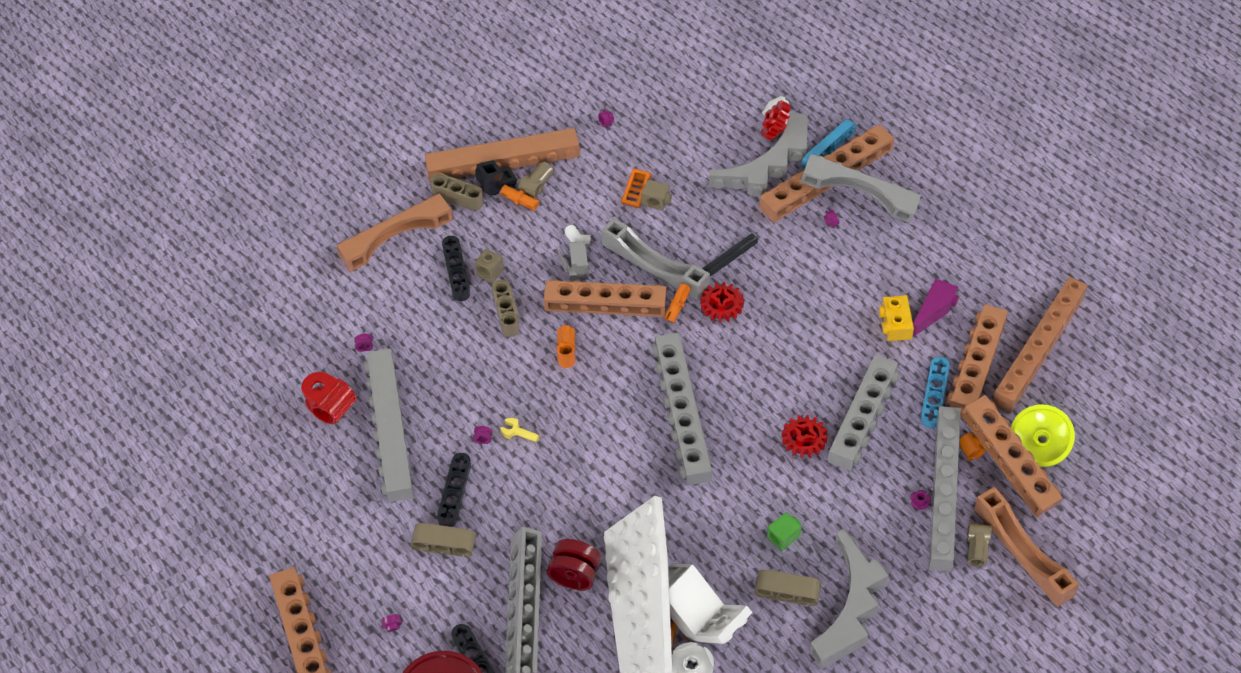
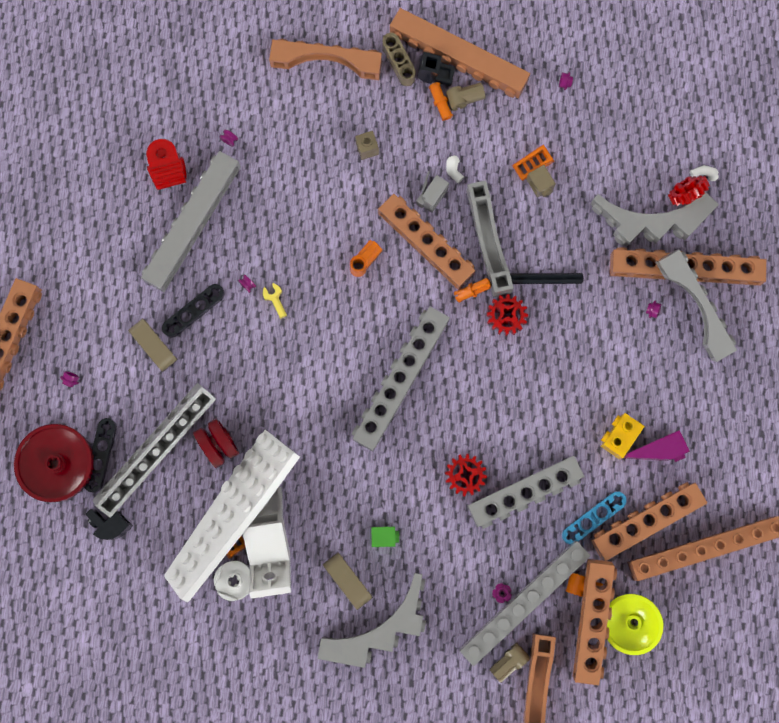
camera: 40 degrees right, 25 degrees up
(456, 268) = (343, 125): black beam -> none
(503, 301) = (349, 182): dark tan beam -> none
(831, 141) = (714, 242): dark azure beam -> none

